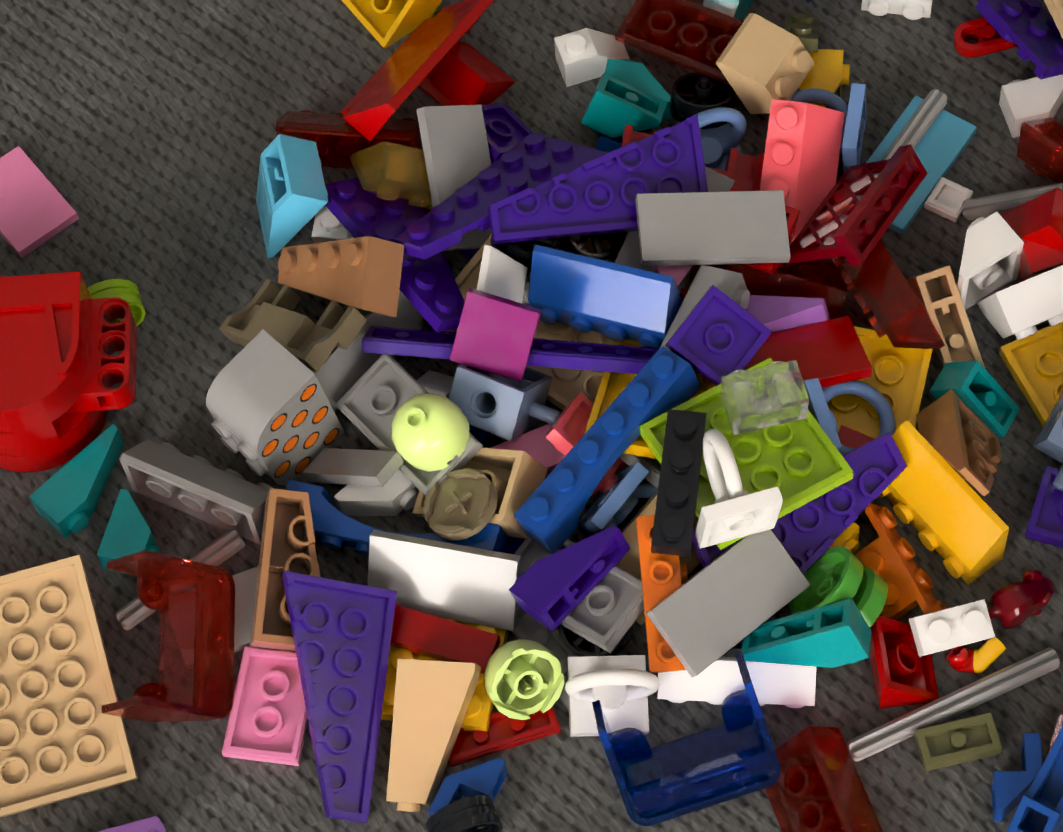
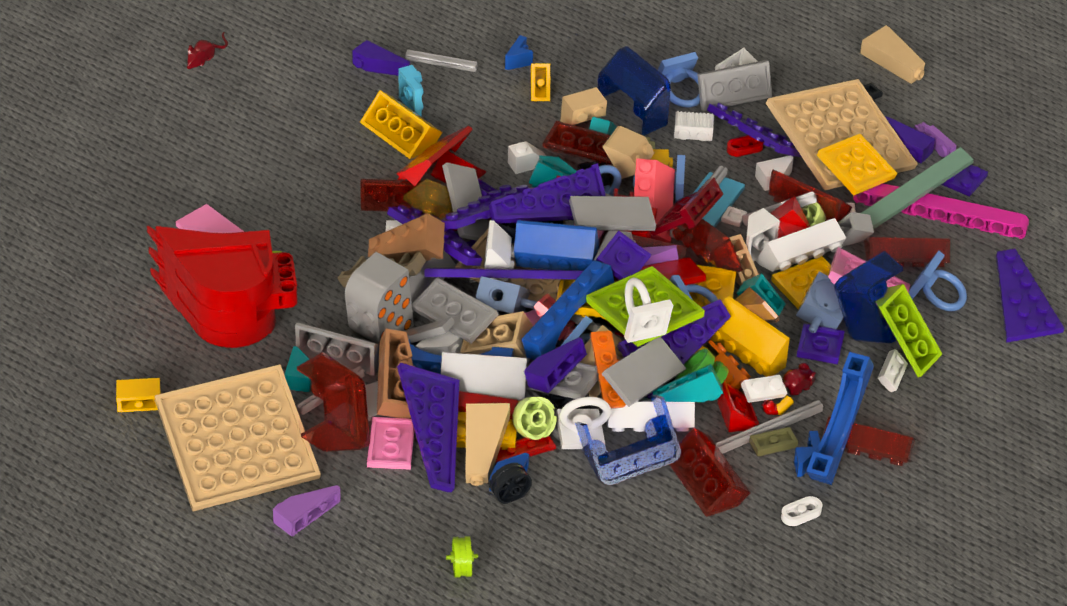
camera: 15 degrees left, 20 degrees down
(75, 489) = (265, 349): teal slope -> none
(288, 189) = (369, 211): medium azure slope -> none
(430, 431) = (469, 305): yellowish green cylinder -> none
(460, 504) = (490, 339): dark tan tile -> none
(495, 334) = (501, 259): magenta tile -> none
(678, 483) = (612, 315): black plate -> none
(764, 396) = (656, 275): clear brick -> none

